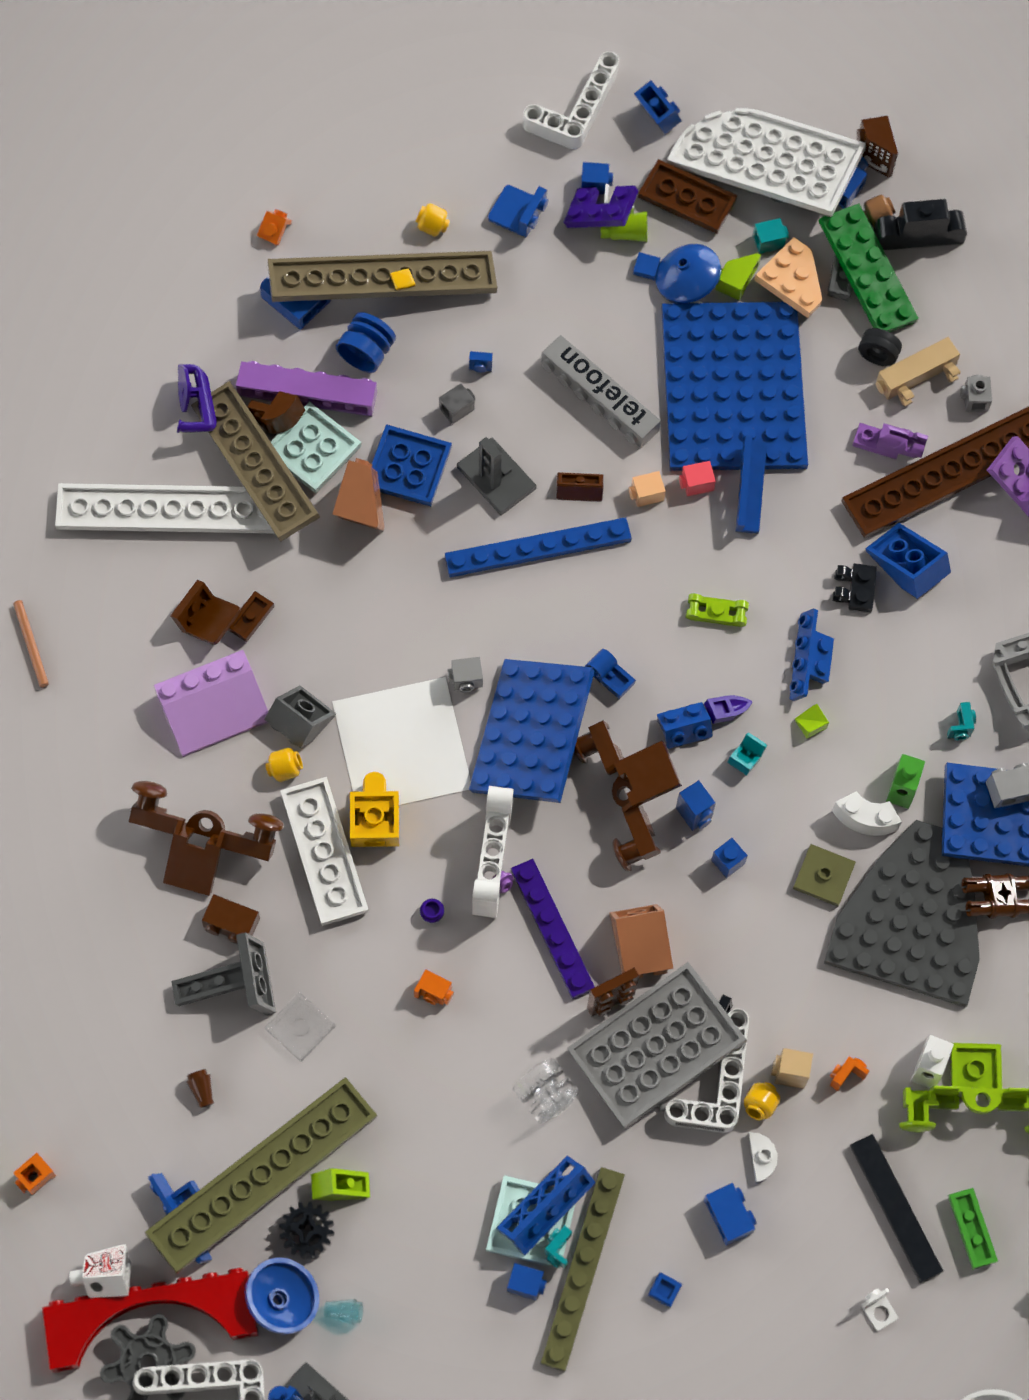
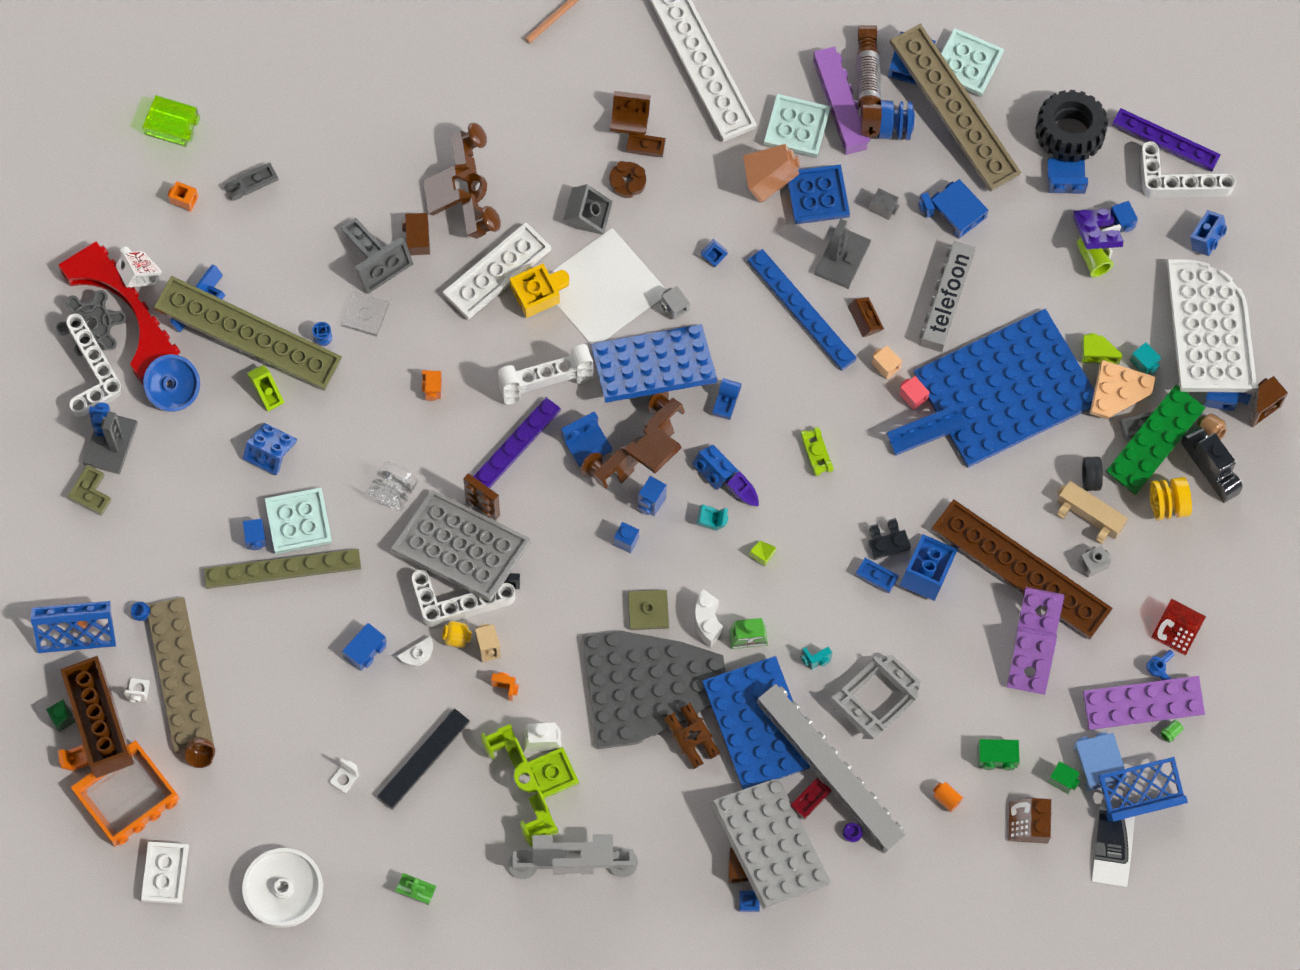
camera: 65 degrees right, 0 degrees up
(57, 1081) = (252, 181): none -> dark grey hinge
(200, 1085) = (291, 270): reddish brown cone -> none
(203, 394) = (793, 37): dark purple piece -> none
(212, 702) = (568, 149): lavender slope -> none
(258, 464) = (762, 91): dark tan plate -> none
(272, 335) = (870, 81): none -> reddish brown piece
(273, 226) = (959, 19): orange bracket -> none
(280, 414) = (806, 90): reddish brown brick -> none
(282, 643) = (629, 189): none -> reddish brown plate
(284, 764) = (546, 216): yellow head -> none
(306, 1090) = (322, 333): none -> blue wheel
(318, 1230) = (214, 383): black gear -> none
(329, 233) = (971, 60): none -> light aqua plate
(344, 1310) = (182, 430): clear light blue cone -> none
(402, 279) = (958, 120): yellow piece -> none
(421, 1215) = (268, 448): none -> blue bracket
(422, 605) = (714, 252): none -> blue slope
(432, 219) = (1023, 121): yellow head -> none
(432, 910) = (489, 360): dark purple plate -> none
(464, 150) = (1074, 106): none -> black tyre
(501, 329) = (960, 207): none -> blue panel
(505, 882) = (533, 396): medium lavender plate -> none
(527, 94) = (1166, 139): none -> dark purple plate
(549, 1207) = (311, 523): blue fence -> none
(557, 1241) = (287, 538): teal bracket -> none
(588, 848) = (585, 437): none -> blue bracket
(642, 940) = (534, 504): nougat slope -> none
(646, 266) = (1072, 285): blue tile -> none
(665, 1289) = (292, 628): blue tile -> none
(687, 196) = (1146, 287): reddish brown plate -> none
(689, 281) = (1079, 314): blue dish -> none
(812, 656) = (814, 532): blue bracket -> none
(890, 441) = (1019, 514): medium lavender plate -> none
(894, 616) = (877, 575): none -> blue plate
(945, 285) = (1175, 498): none -> yellow wheel
(972, 1228) = (432, 816): bright green plate -> none

